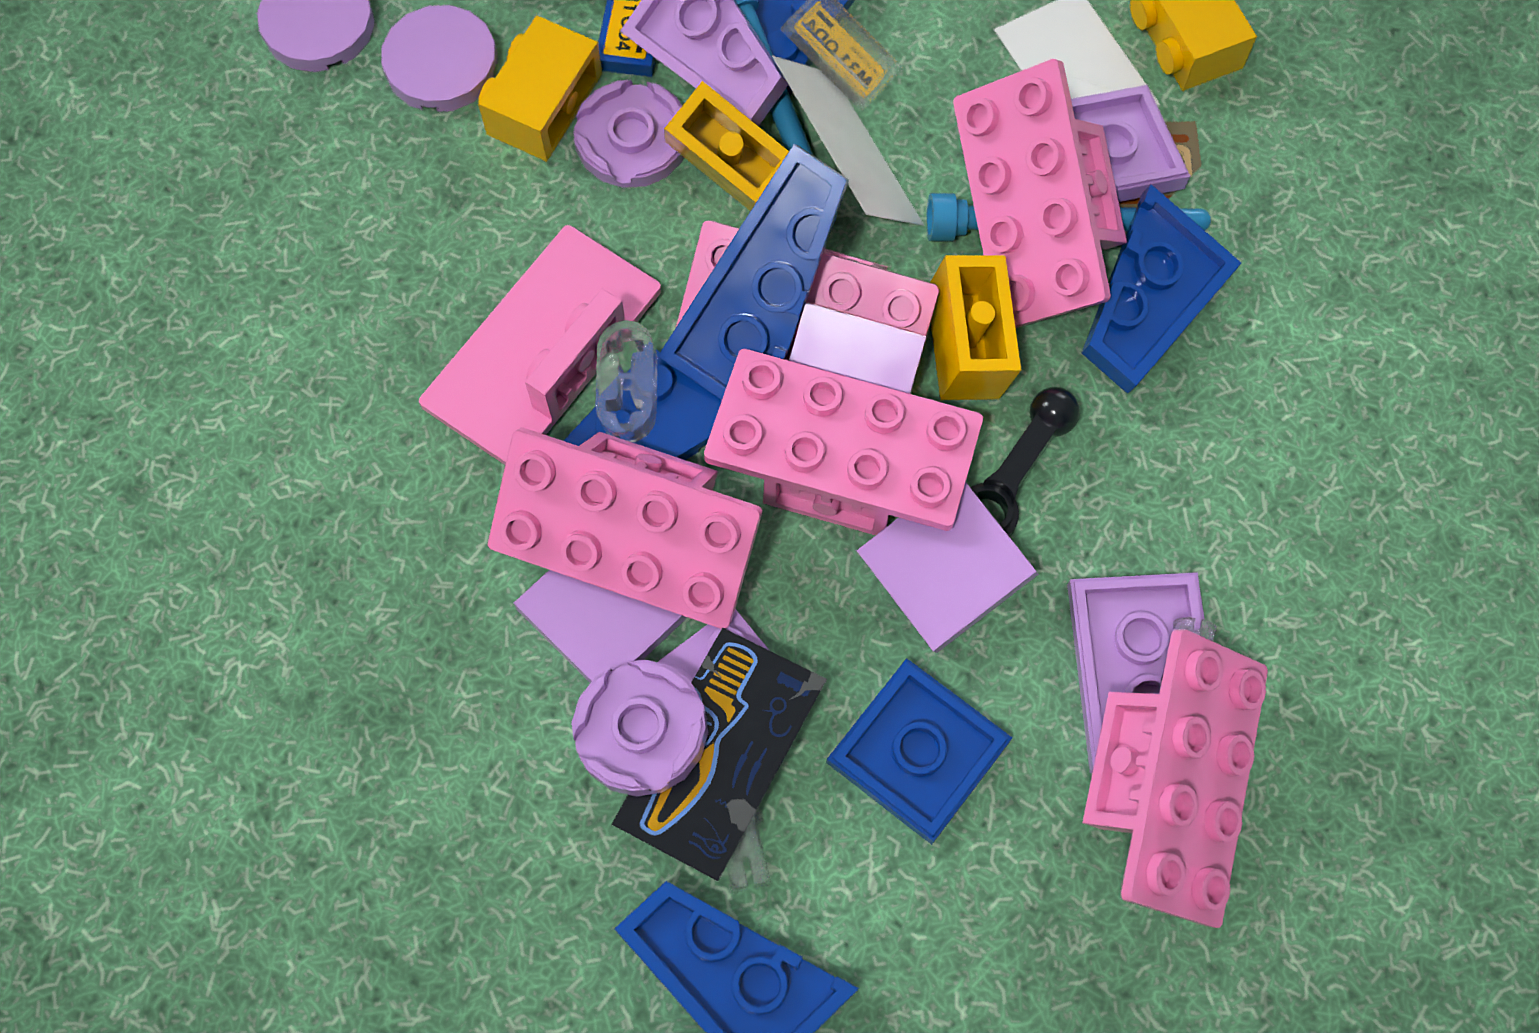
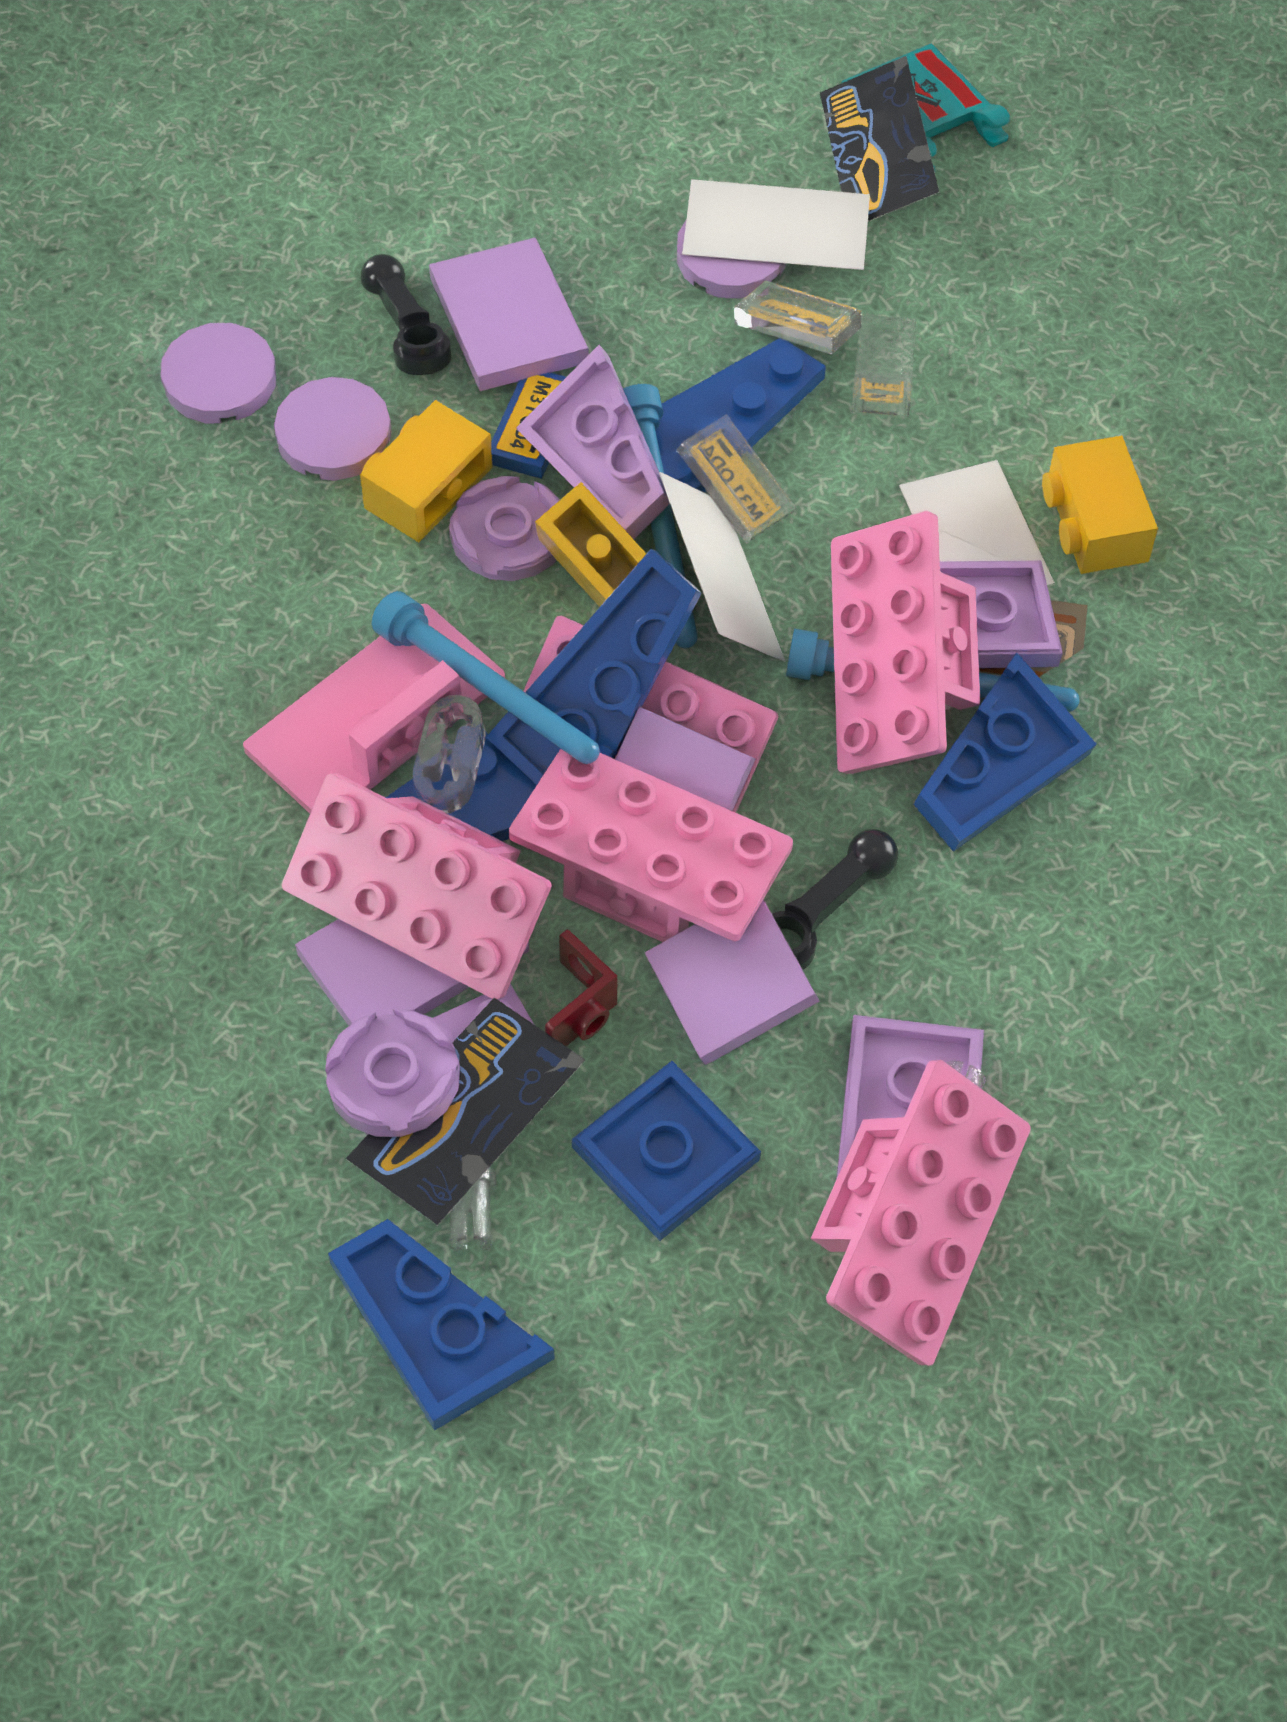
camera: 10 degrees right, 10 degrees down
(552, 251) = (404, 622): none -> dark azure piece
(818, 623) = (591, 1008): none -> dark red bracket
(974, 328) = (805, 760): yellow brick -> none

